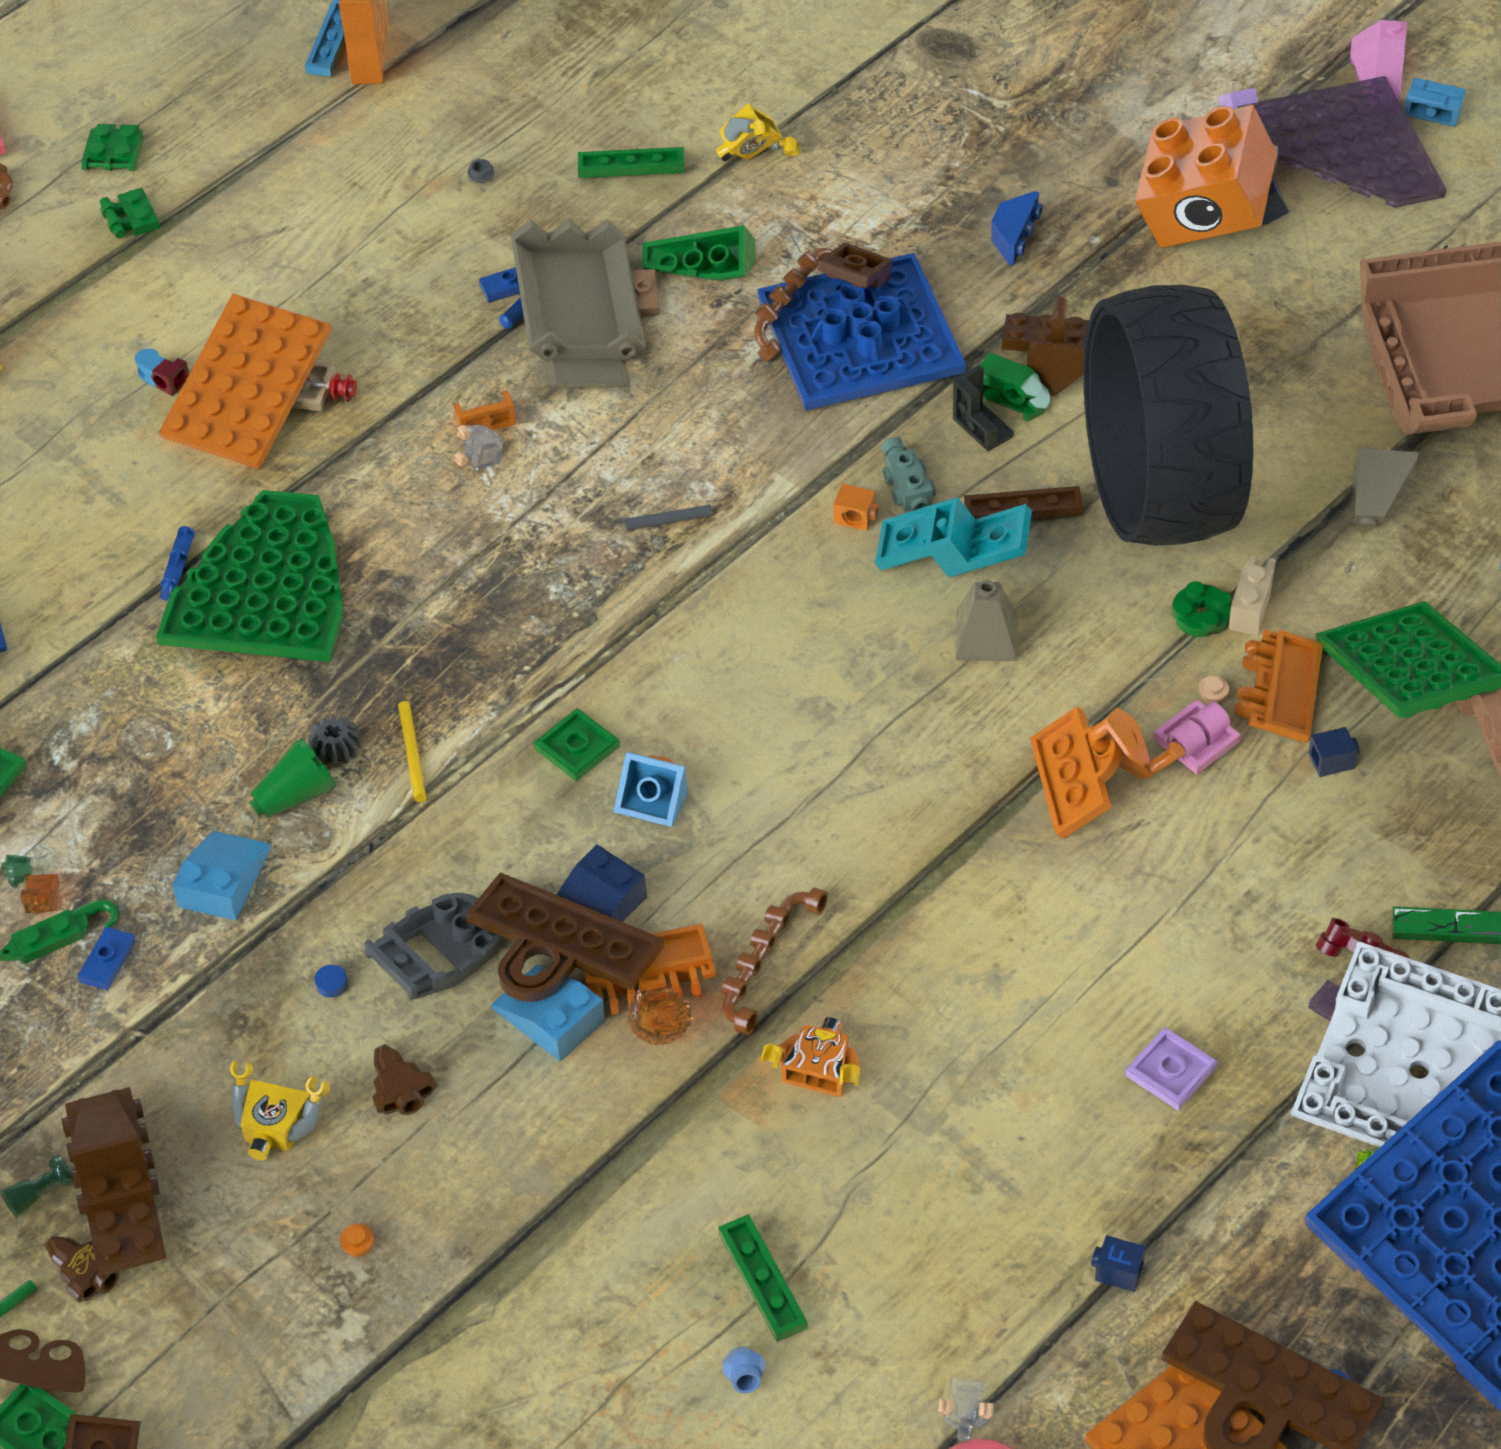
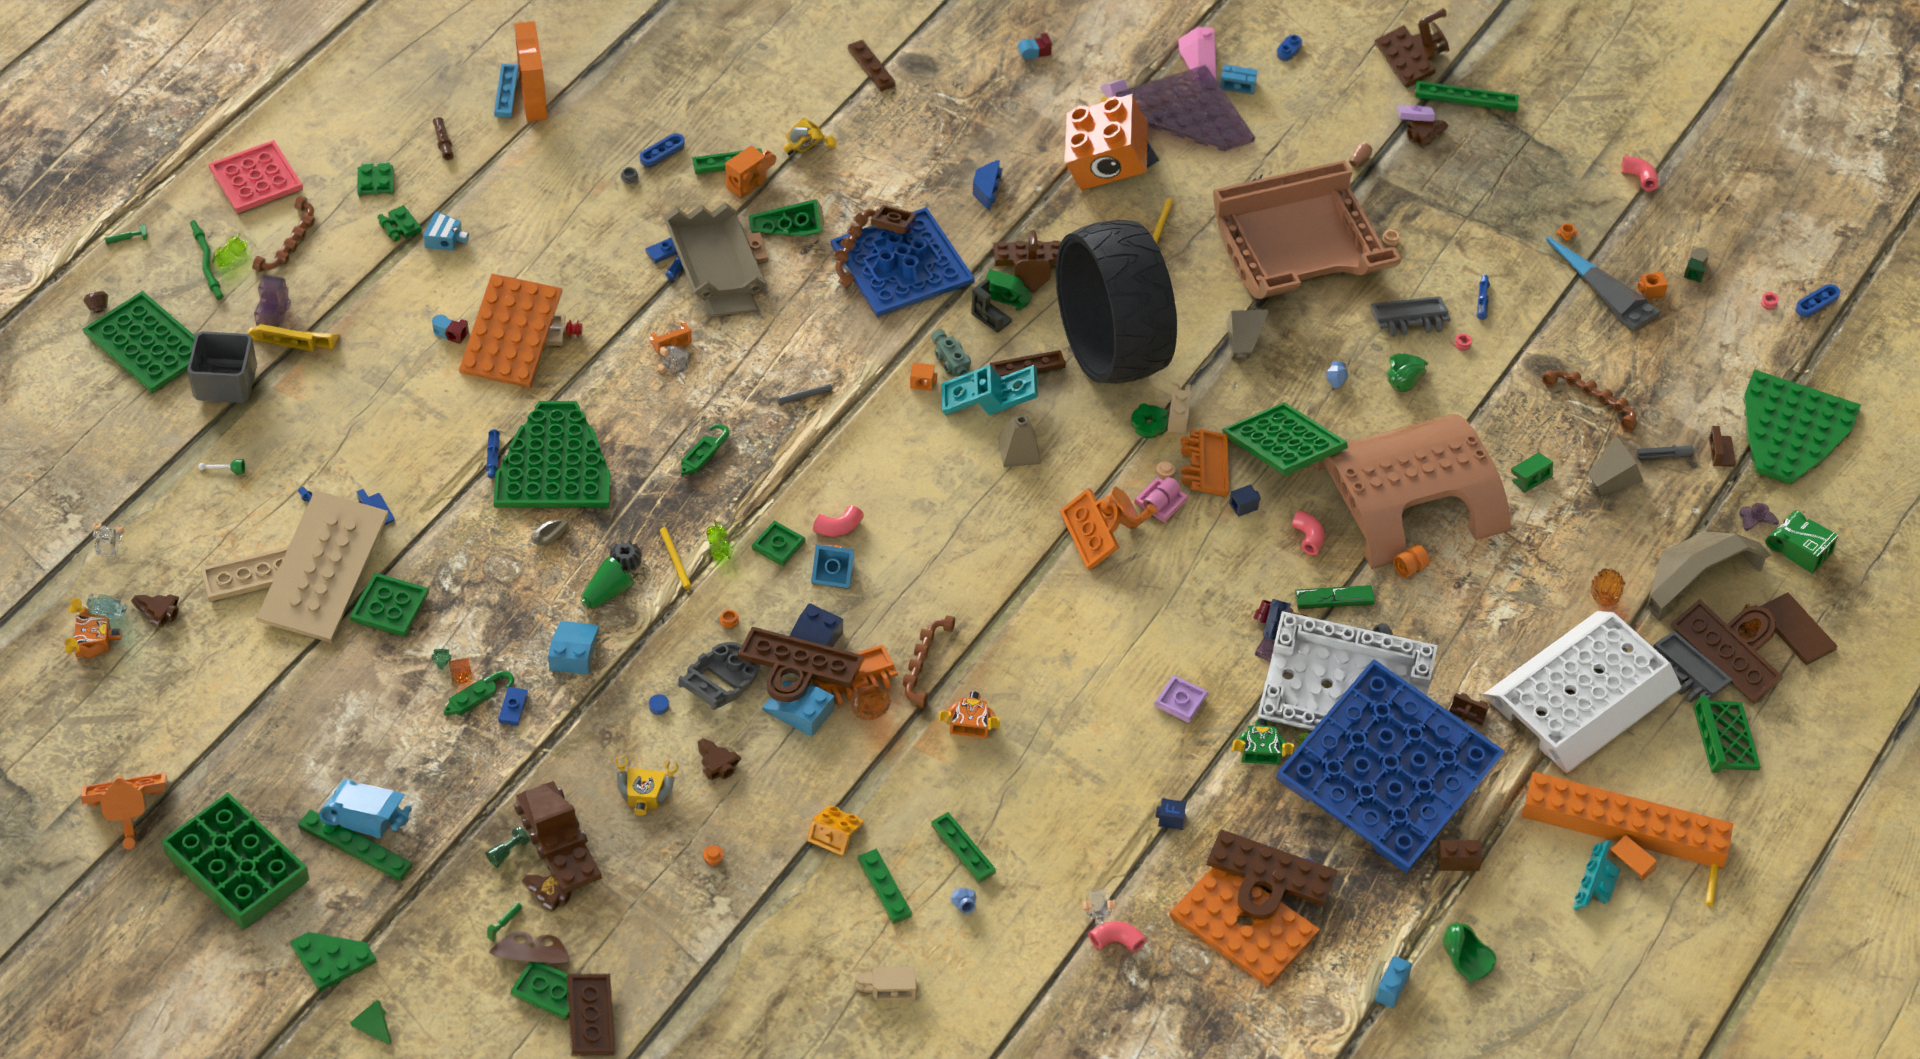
camera: 15 degrees left, 0 degrees up
(188, 231) = (444, 233): none -> dark azure torso
(223, 105) = (447, 153): none -> reddish brown pin
(230, 690) = (549, 532): none -> dark tan arm
(471, 856) = (729, 619): none -> orange plate
(485, 722) = (717, 535): none -> clear neon green hinge
(493, 589) = (703, 451): none -> green plate
(537, 138) = (662, 149): none -> blue plate
(556, 1220) = (833, 829): none -> light orange bracket
(621, 1328) = (884, 886): none -> green plate
(654, 176) = (748, 170): none -> orange brick
(675, 726) = (838, 526): none -> coral cylinder
(876, 42) = (871, 65): none -> reddish brown plate
(1128, 33) = (1035, 47): none -> leg
(1274, 309) = (1165, 211): none -> yellow bar
(1291, 1161) = (1262, 744): none -> green torso
(1353, 932) = (1274, 618): none -> dark blue hinge
(1438, 814) = (1313, 531): none -> coral cylinder

